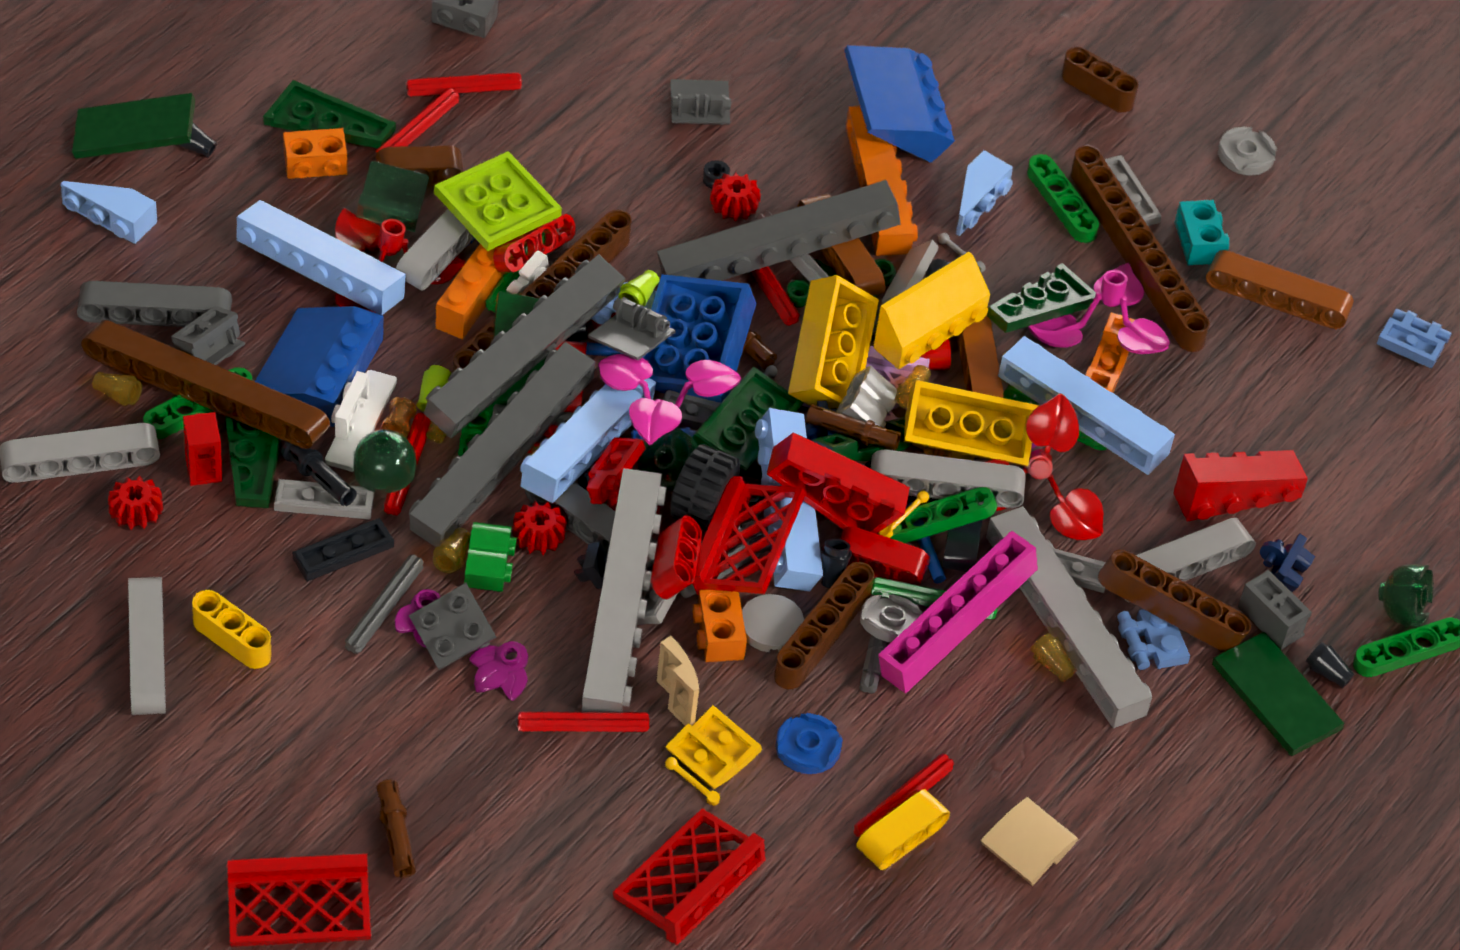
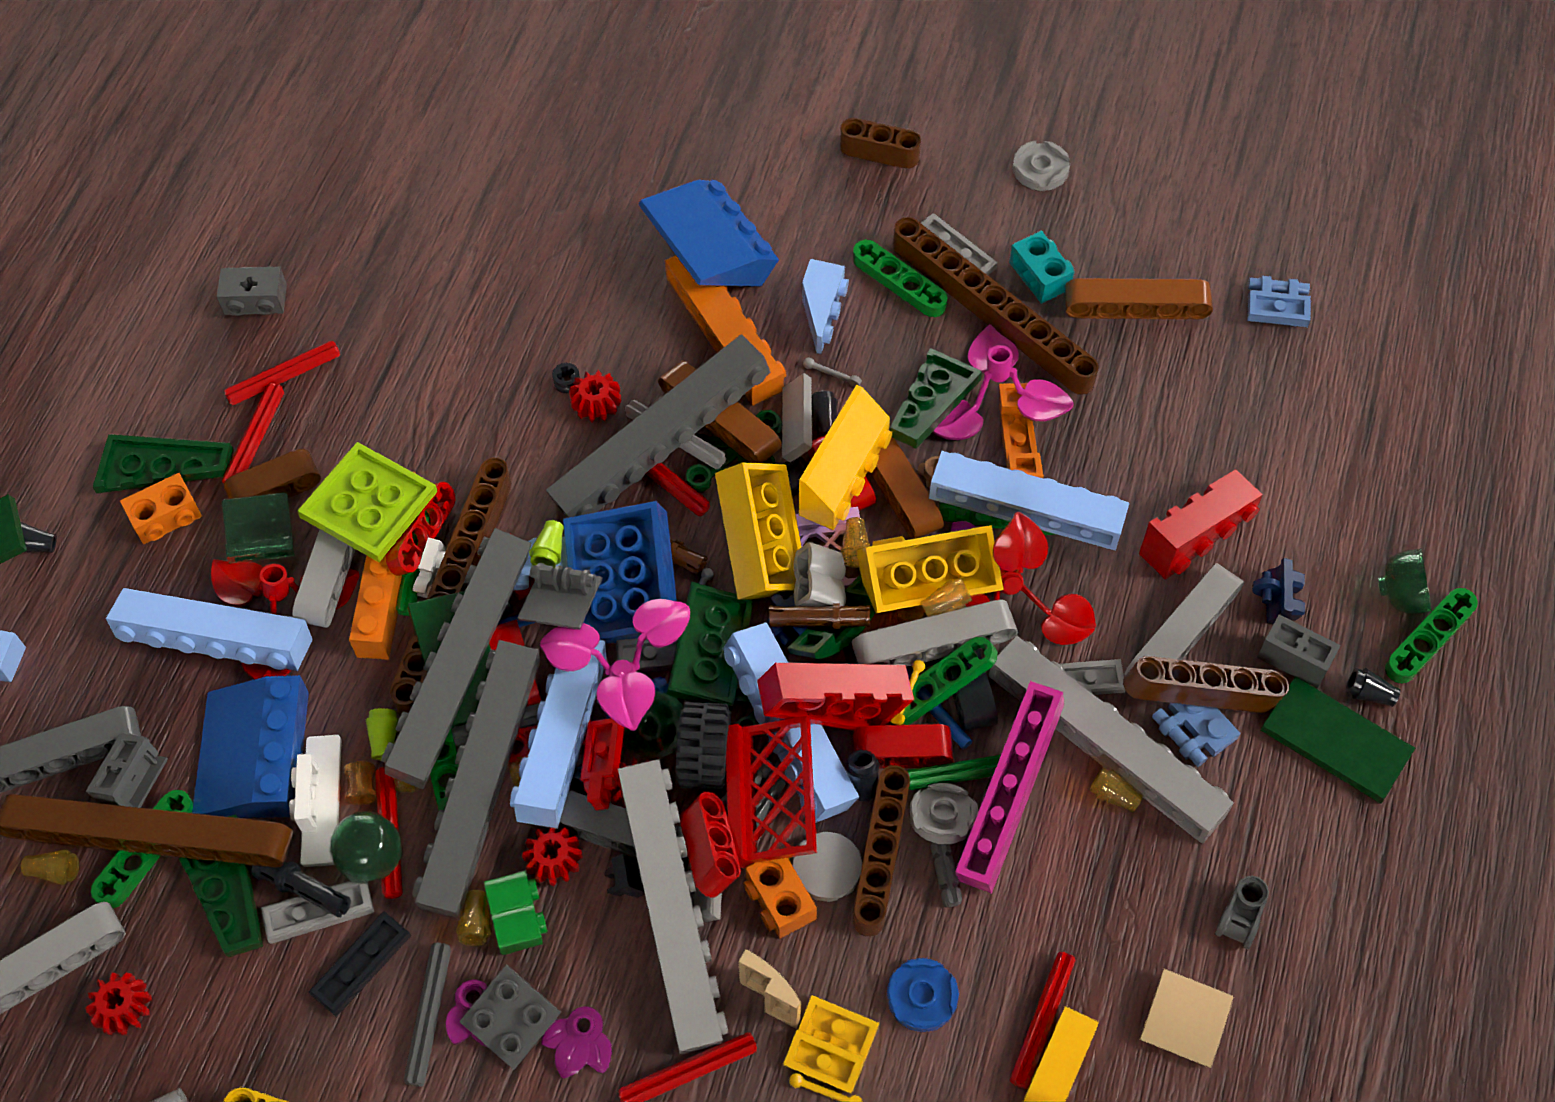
camera: 15 degrees left, 10 degrees up
(202, 448) = (166, 912): red brick -> none
(700, 101) = (519, 305): dark grey hinge -> none
(971, 448) = (947, 598): none -> clear yellow cone
(1117, 787) = (1240, 917): none -> dark grey piece

